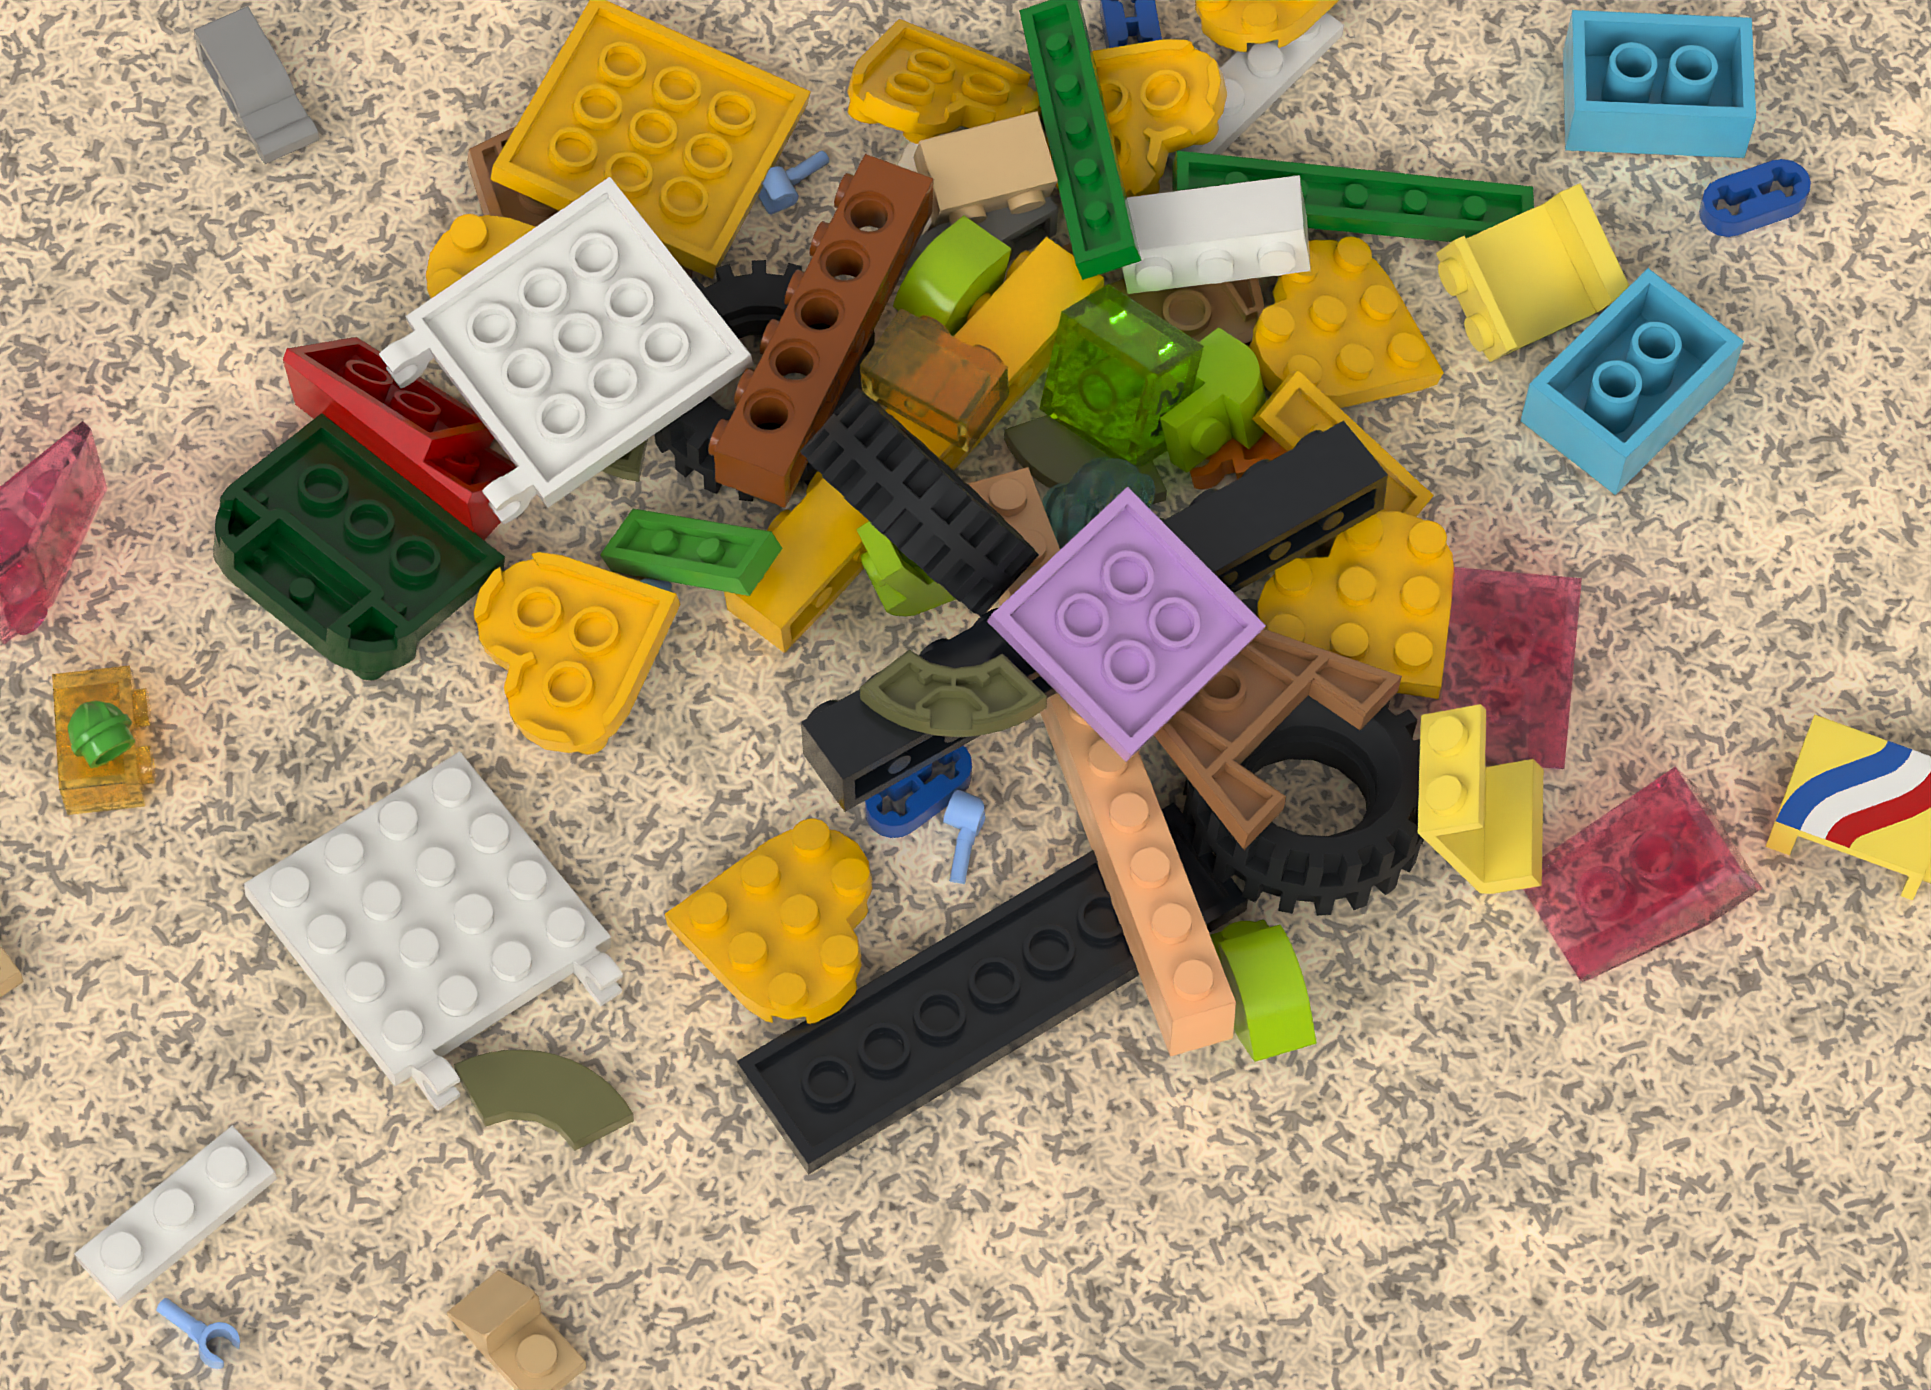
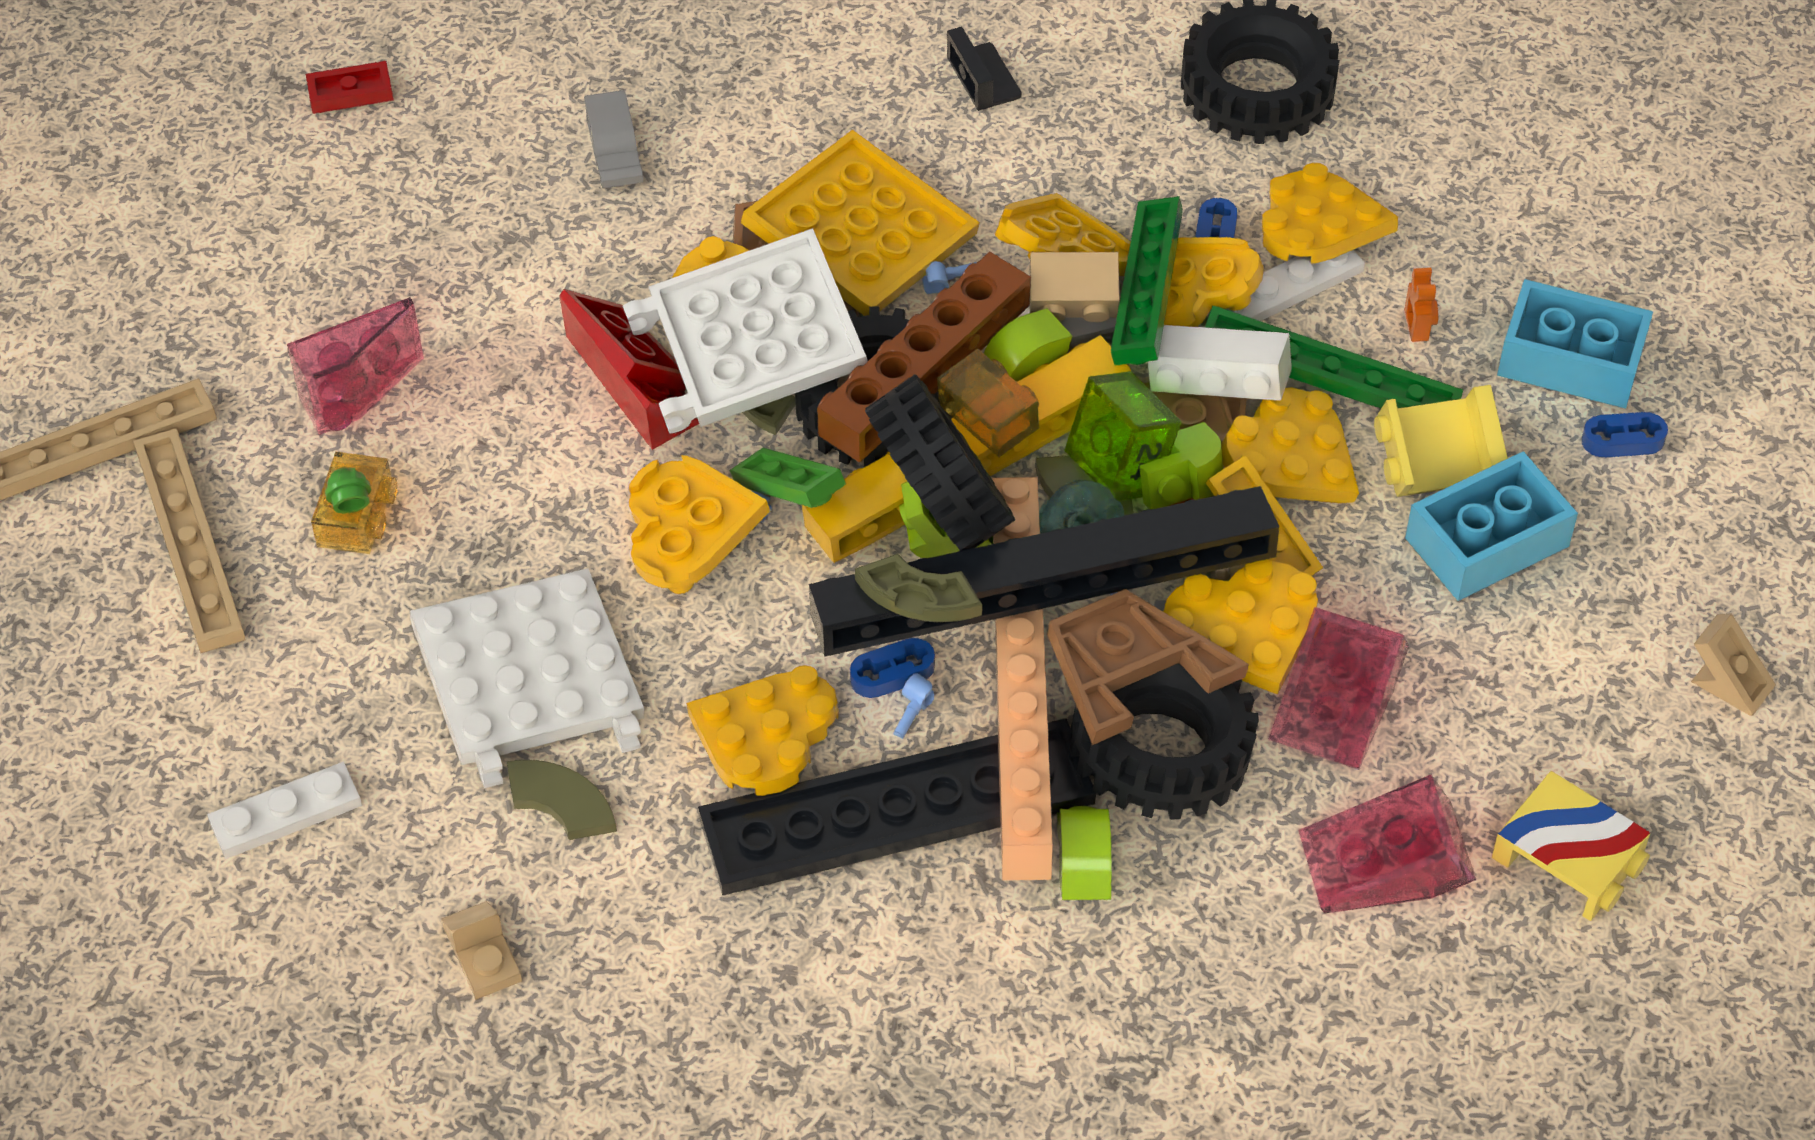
camera: 20 degrees right, 10 degrees down
(199, 1331) = (270, 887): light blue hand -> none
(347, 550) = (561, 427): dark green plate -> none
(1126, 623) = (1055, 573): lavender plate -> none
(1441, 76) = (1421, 305): none -> orange plate
(1477, 815) = (1275, 778): light yellow panel -> none

